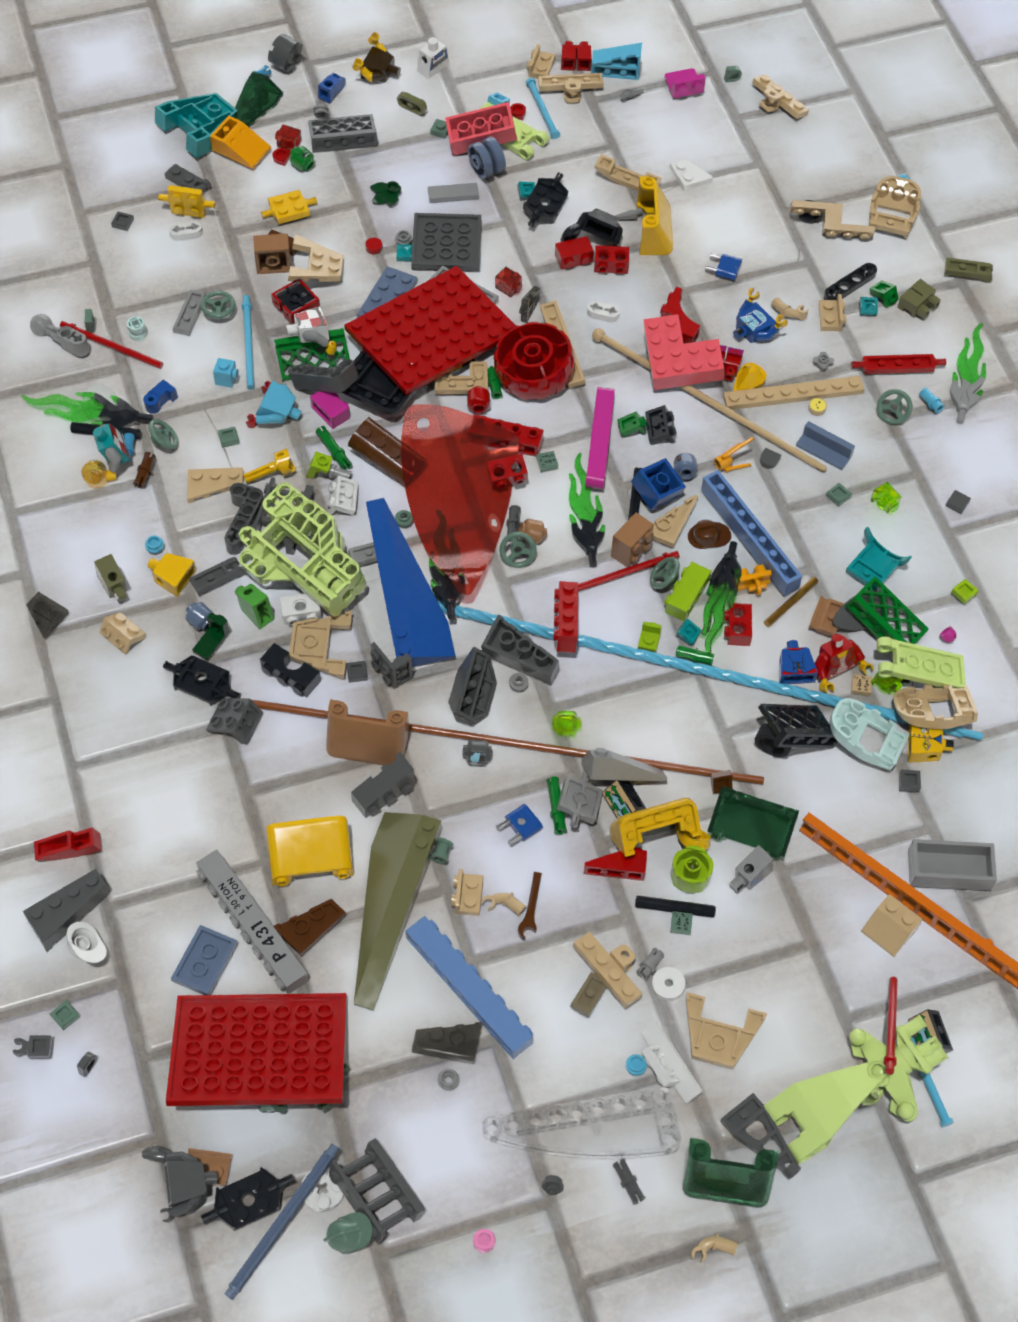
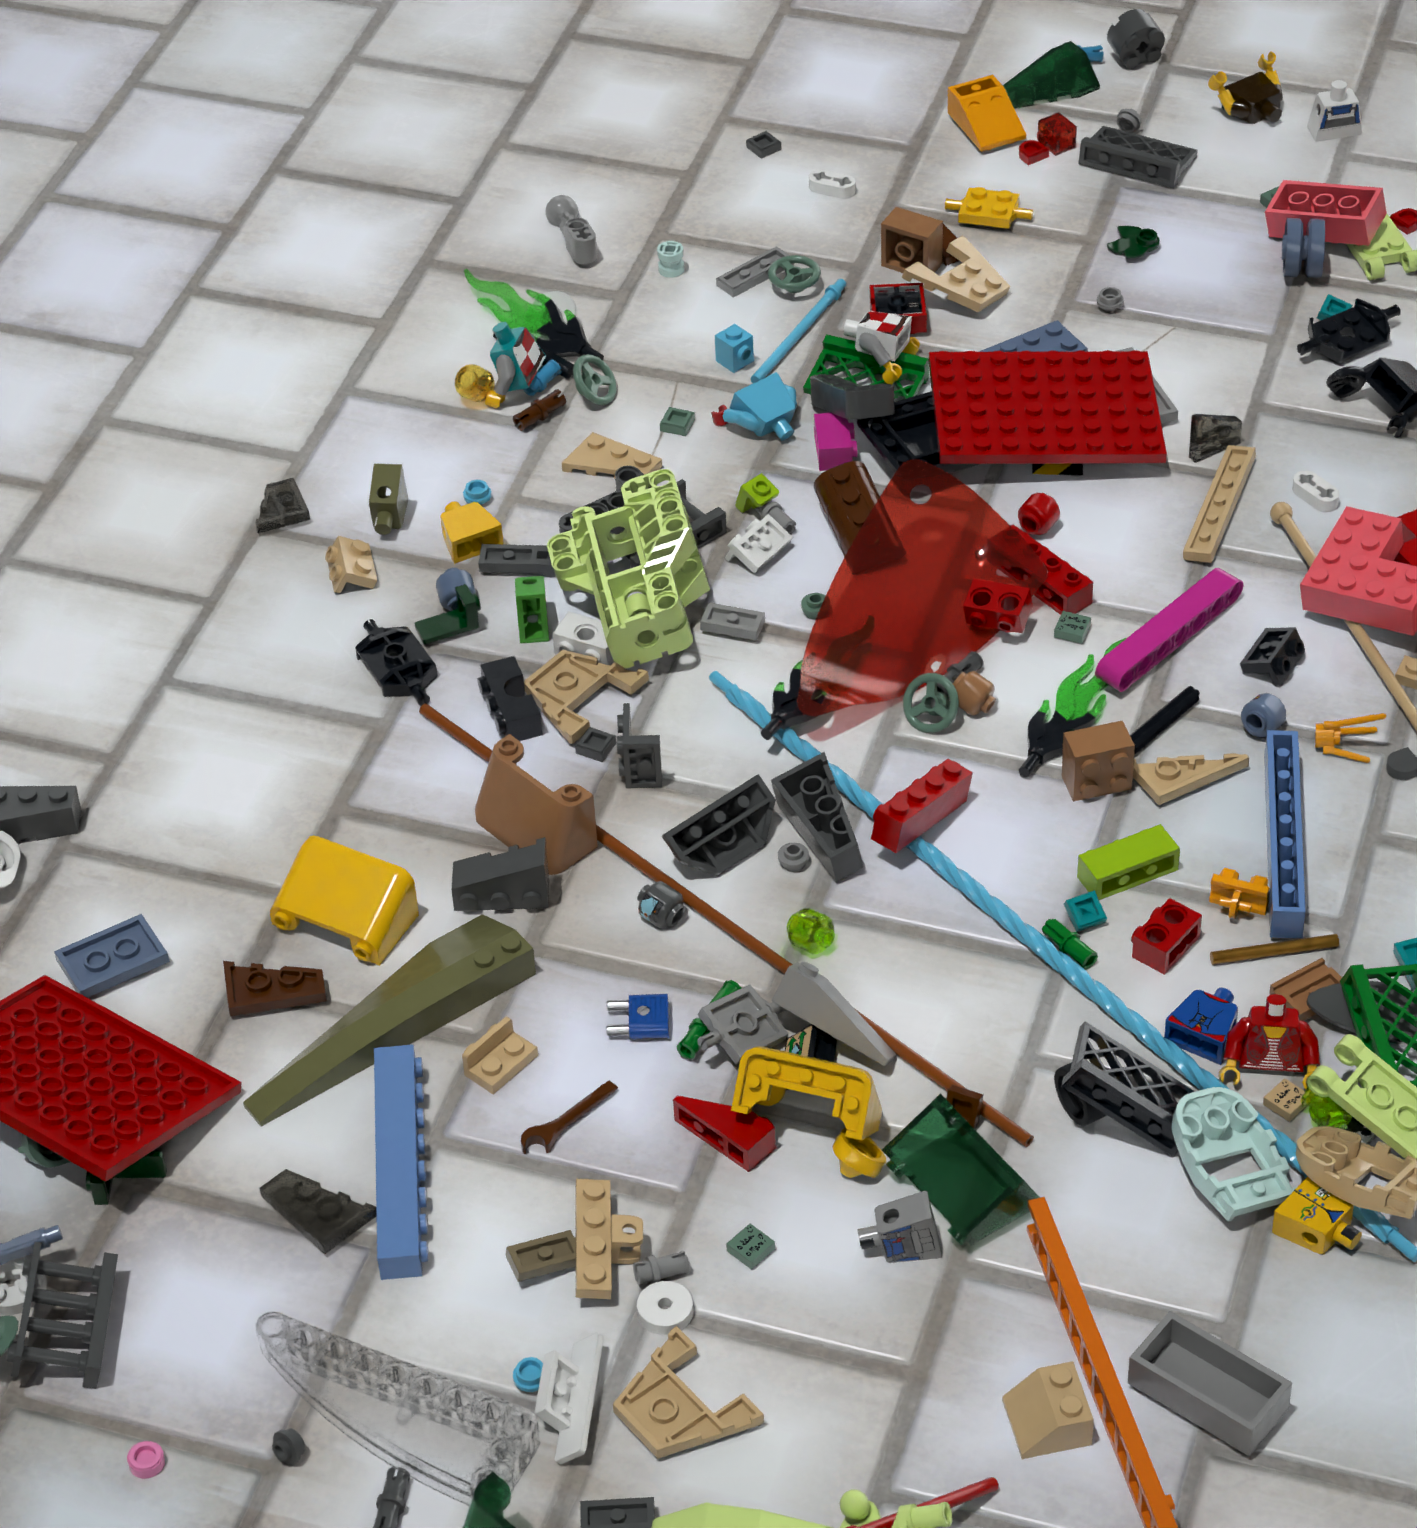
camera: 40 degrees right, 15 degrees down
(67, 845) = (77, 754): red slope -> none
(89, 320) = (620, 228): sand green tile -> none
(115, 346) = (628, 267): red bar -> none
(159, 396) = (629, 341): blue leg -> none
(186, 179) = (885, 132): dark grey plate -> none
(186, 201) = (856, 147): yellow plate -> none
(197, 117) = (949, 64): teal wedge -> none
(236, 717) = (397, 721): dark grey bracket -> none
(252, 922) = (204, 947): light grey brick -> none
(281, 463) = (711, 473): yellow piece -> none
(302, 158) = (1053, 161): green head -> none
(330, 87) = (1166, 98): blue leg -> none
(337, 453) = (796, 494): green pin -> none
(373, 245) = (1062, 293): red tile -> none
(404, 252) = (1098, 317): teal tile -> none
(412, 103) = (1261, 156): olive plate -> none
(412, 608) = (724, 698): blue wedge -> none
(441, 851) = (510, 991): sand green bush -> none
(446, 241) = (1167, 323): dark grey plate -> none
(448, 1073) = (275, 1243): light grey plate -> none
(453, 192) = (1228, 276): light grey tile -> none
(462, 384) = (1020, 483): tan plate -> none
(494, 383) = (1082, 507): green axle -> none
(497, 98) = (1393, 197): medium azure tile -> none
(506, 899) = (539, 1088): tan piece -> none
(508, 282) = (1208, 398): clear red brick -> none
(534, 361) = (1153, 498): red wheel -> none
(574, 252) = (1334, 405): red brick -> none
(611, 259) = (1382, 434): red brick -> none
(626, 571) = (1135, 811): red bar -> none
(632, 423) = (1231, 633): green bracket -> none
(649, 636) = (1025, 891): lime bracket -> none
(658, 484) = (1197, 713): blue brick -> none
(667, 574) = (1113, 825): sand green piece -> none
(674, 905) = (751, 1214): black axle -> none
(681, 871) = (818, 1184): lime brick -> none
(709, 534) = (1226, 813): reddish brown piece -> none
(721, 589) = (1173, 883): clear neon green piece -> none
(910, 780) = (1248, 1251): dark grey plate -> none

